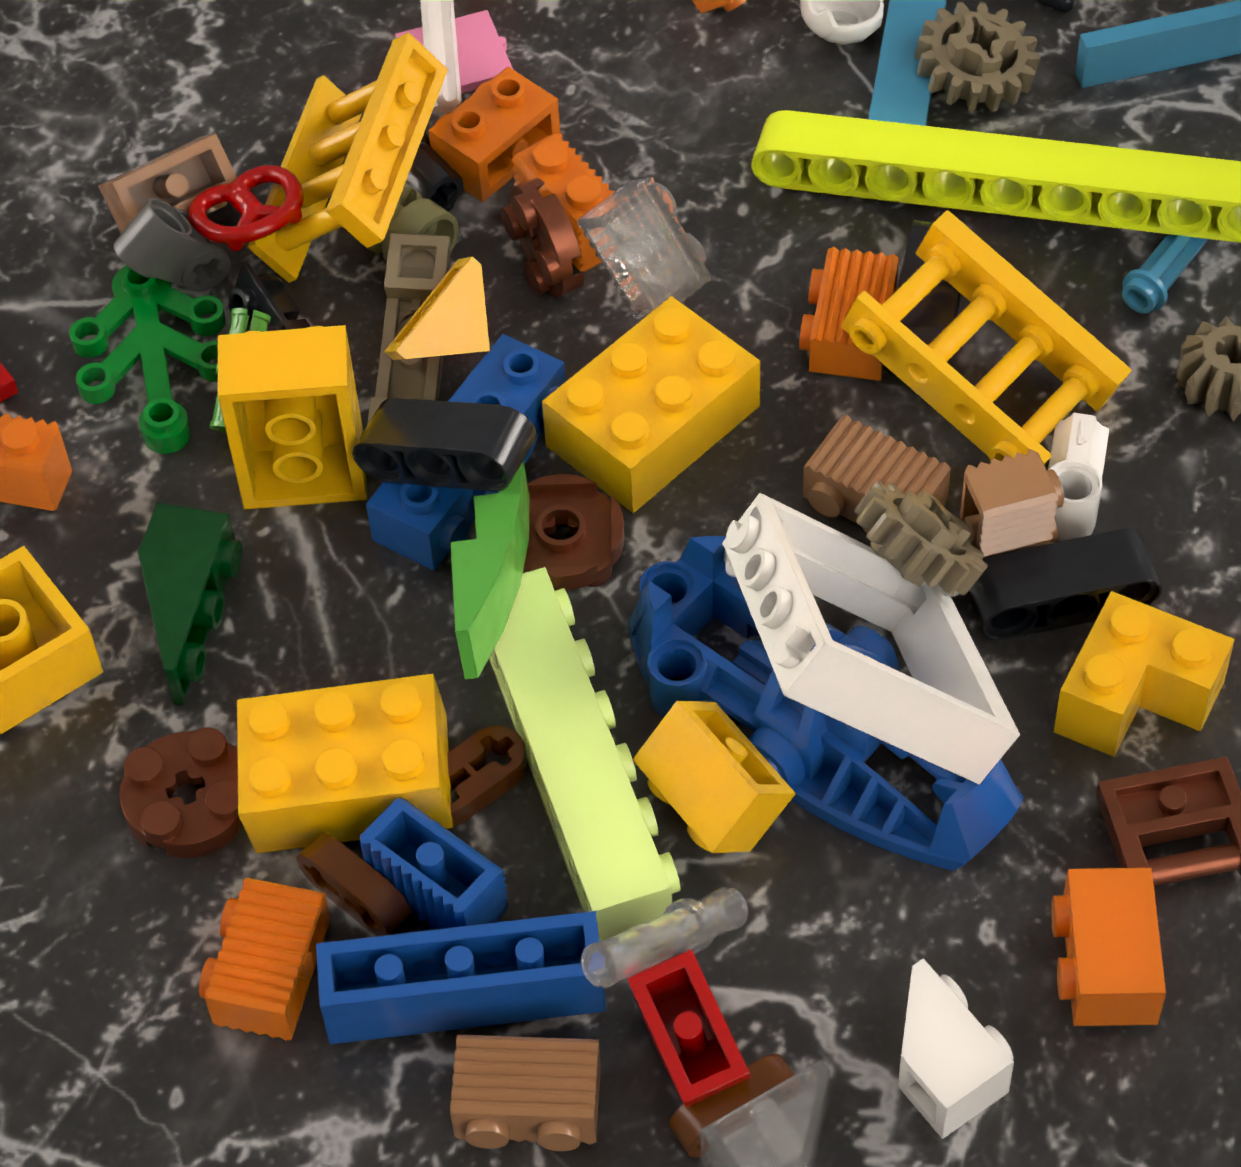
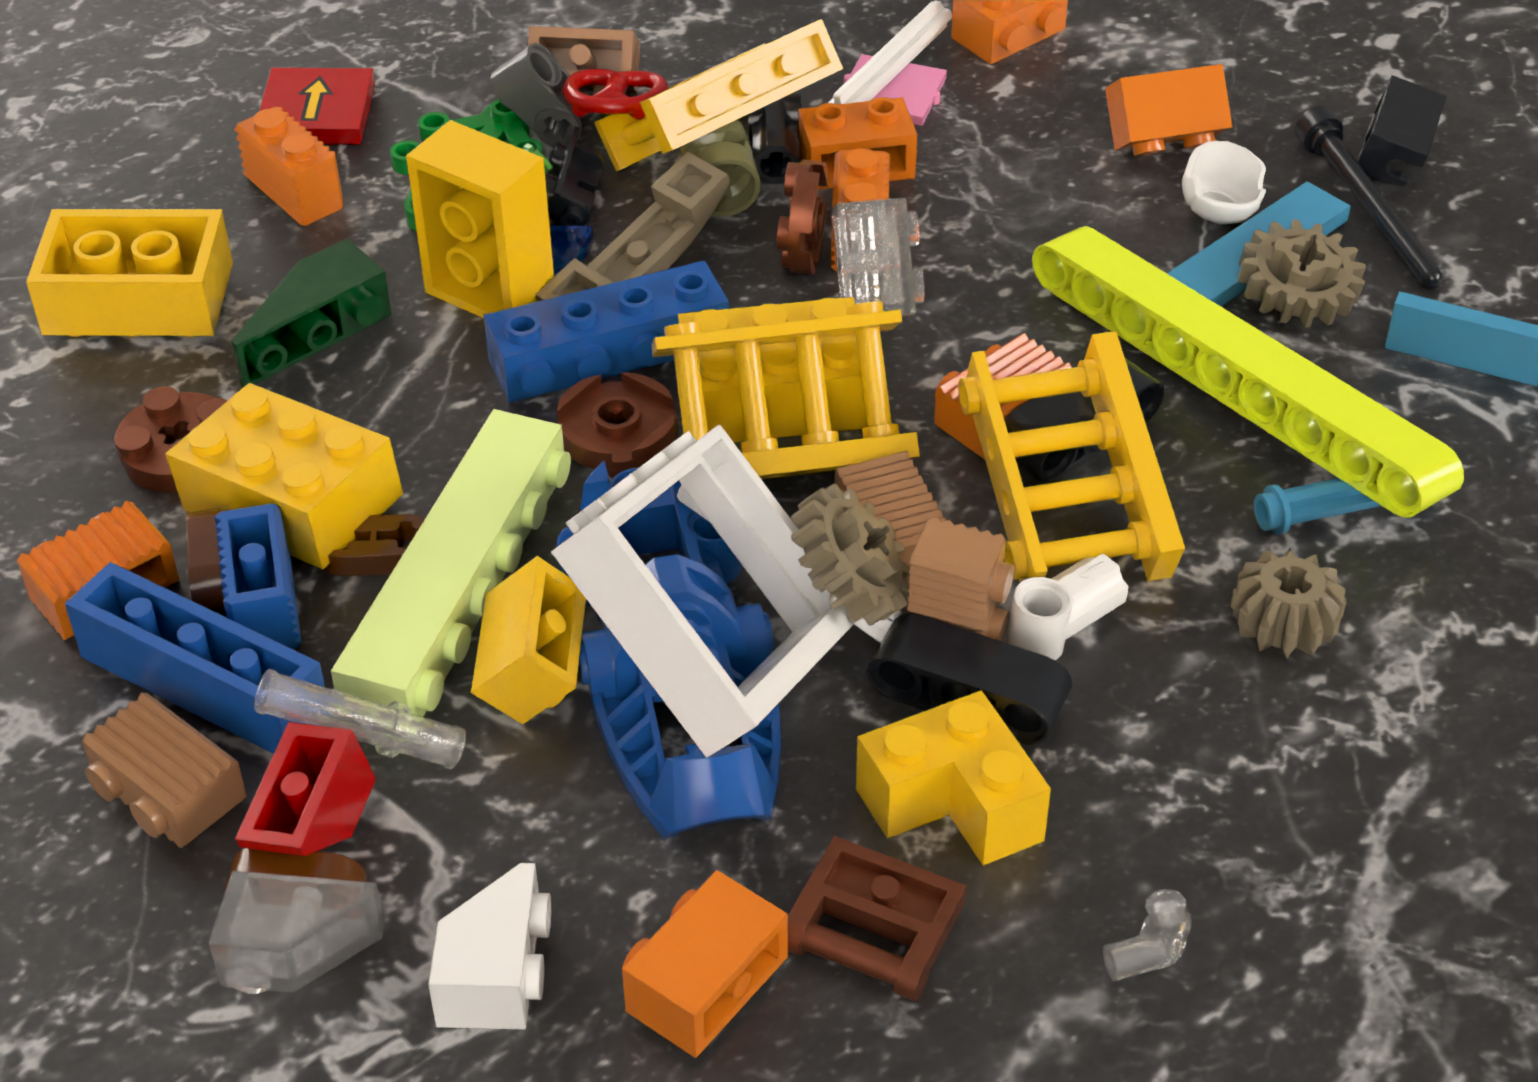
camera: 35 degrees right, 10 degrees down
(444, 444) = (559, 291): black beam -> none
(449, 319) = (669, 227): yellow slope -> none
(489, 571) = (505, 394): bright green slope -> none
(764, 453) = (821, 445): none -> yellow fence

